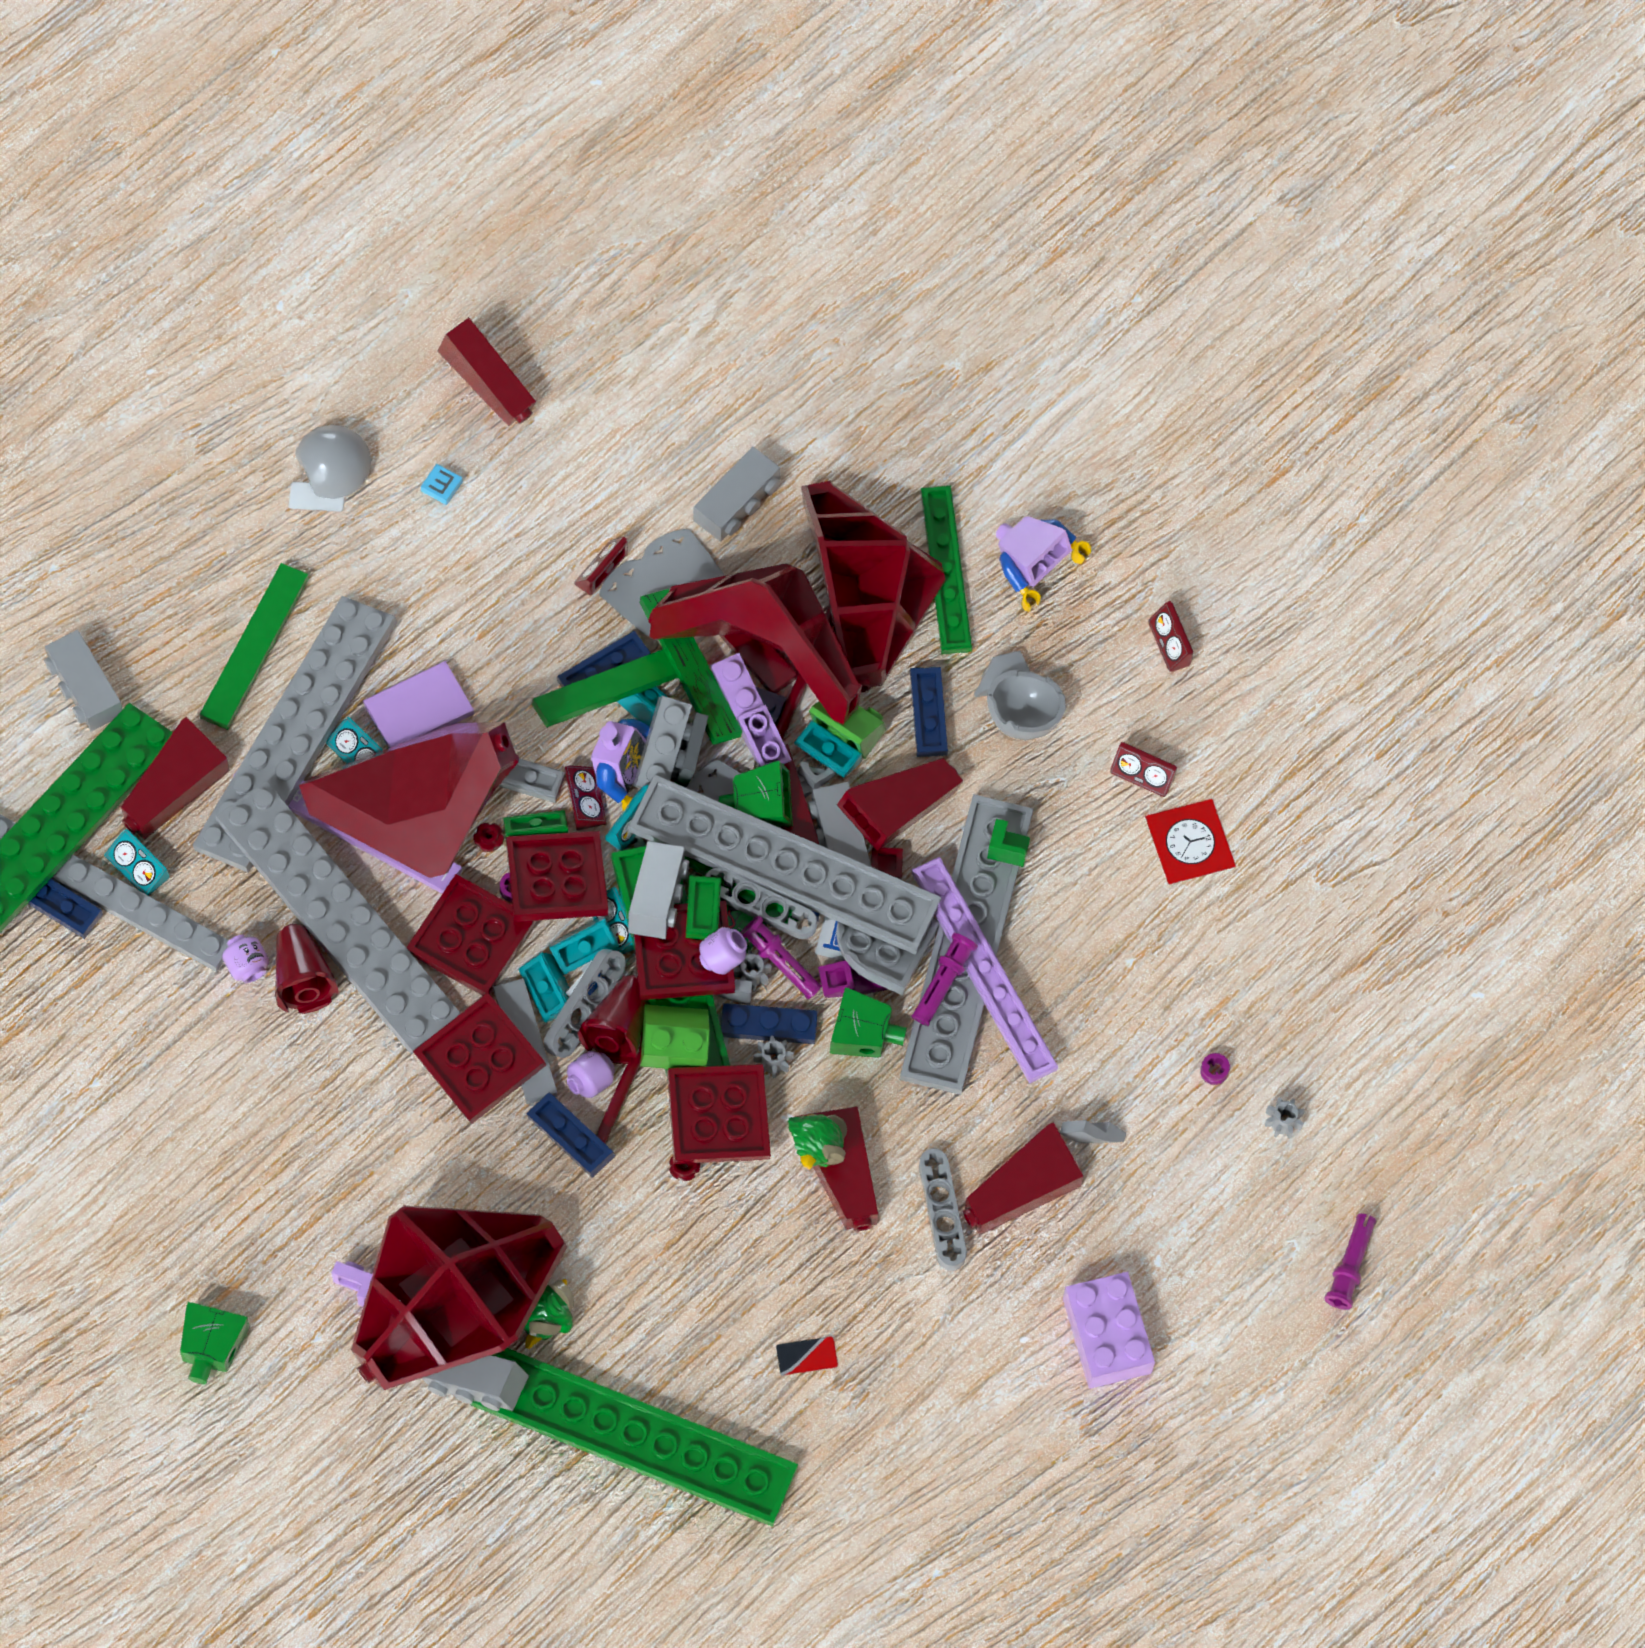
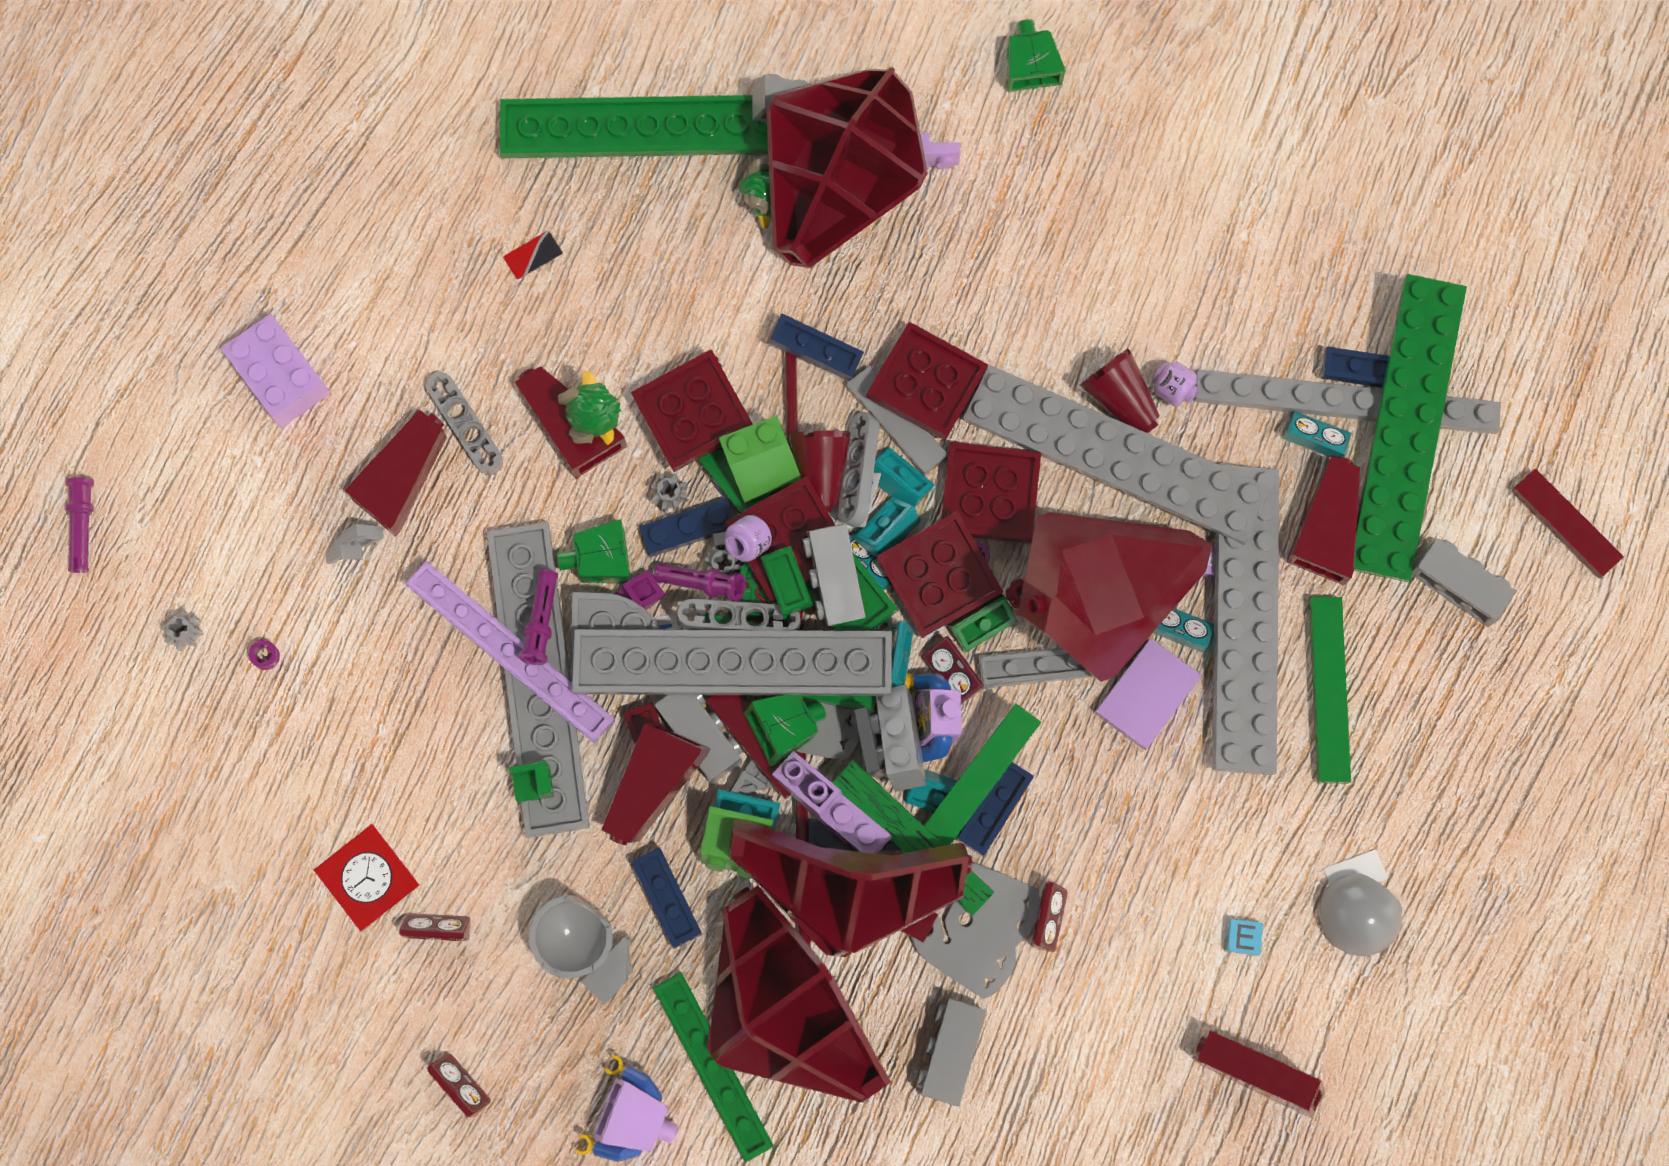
camera: 160 degrees right, 10 degrees up
(590, 1074) = (824, 408): lavender head -> none

